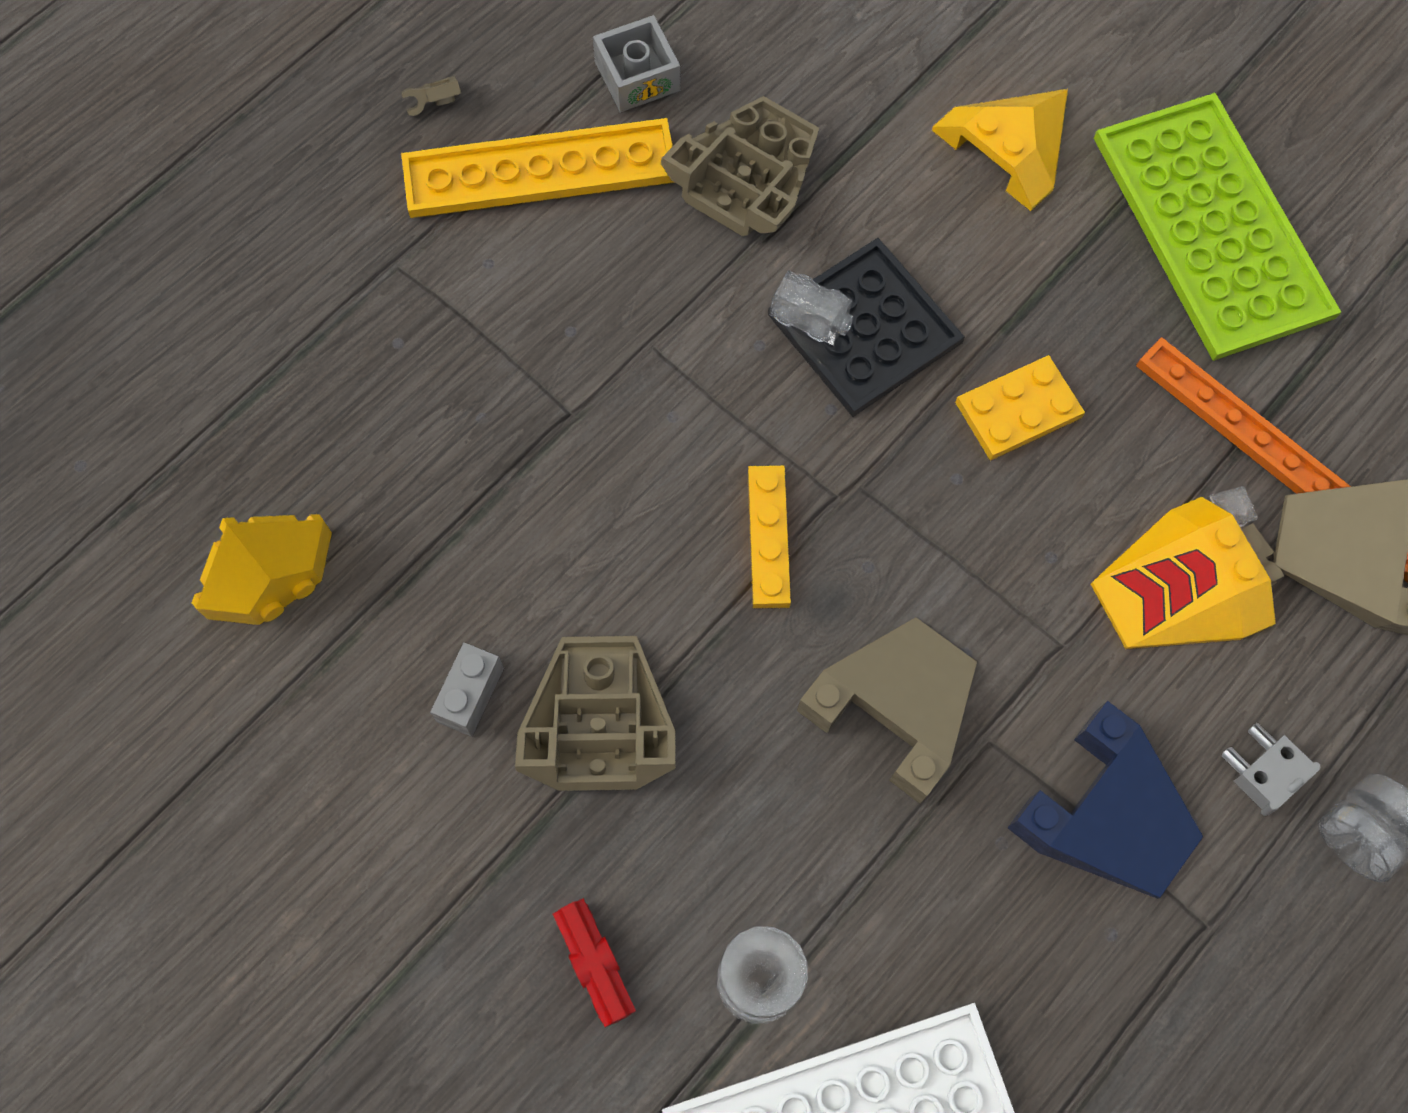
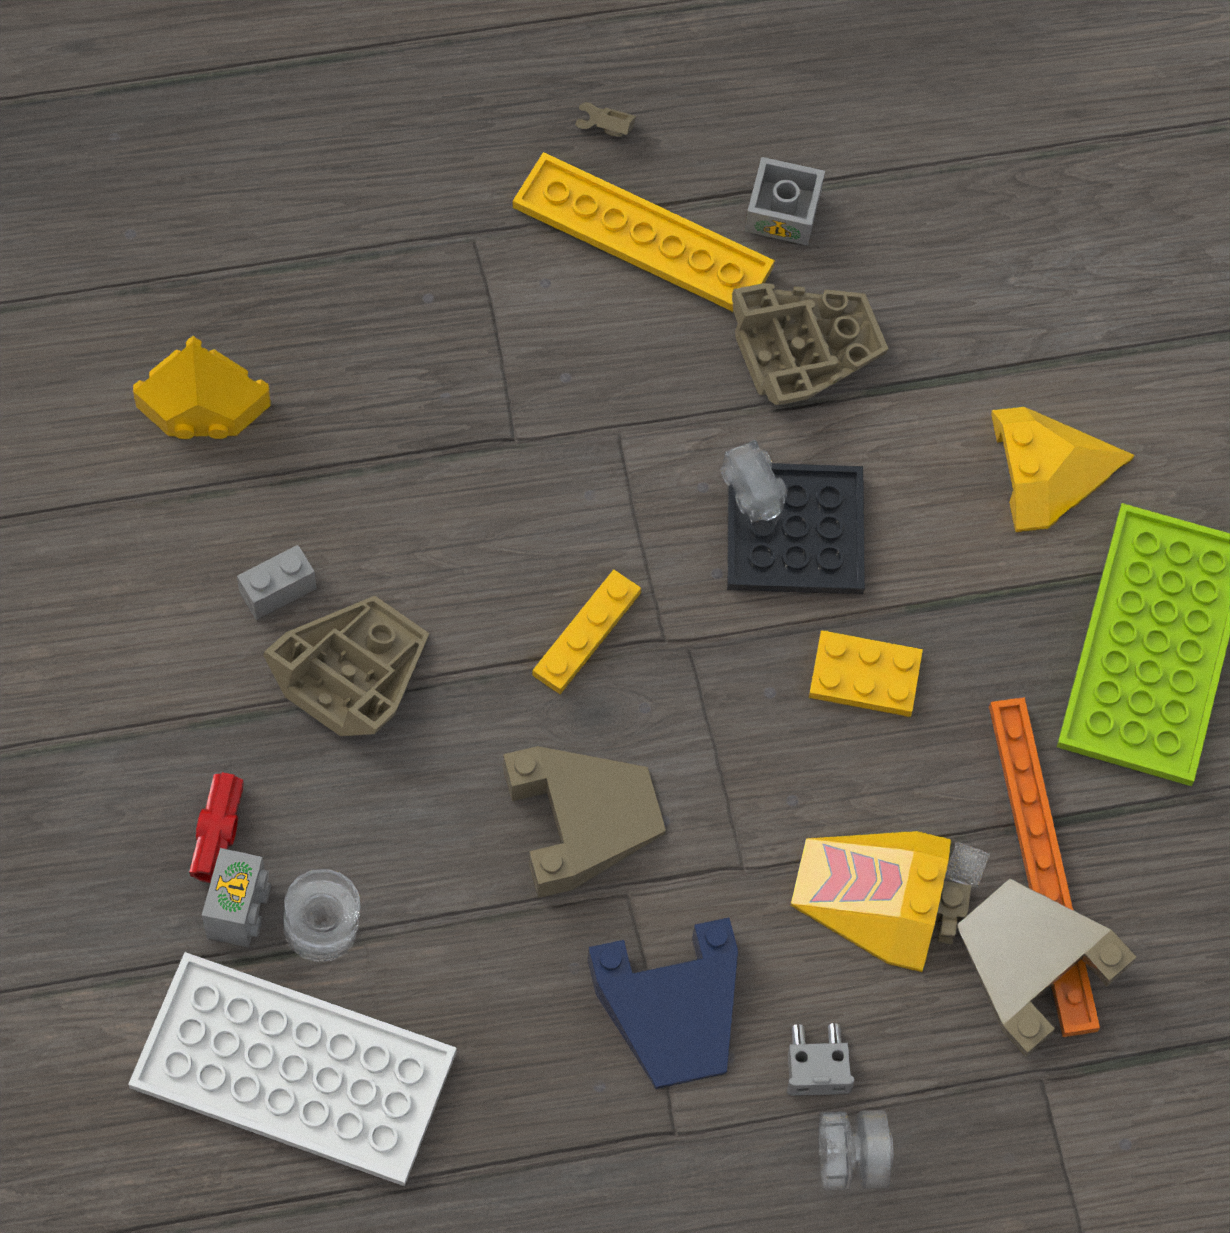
camera: 35 degrees right, 5 degrees down
(671, 1022) = (235, 898): none -> light grey brick

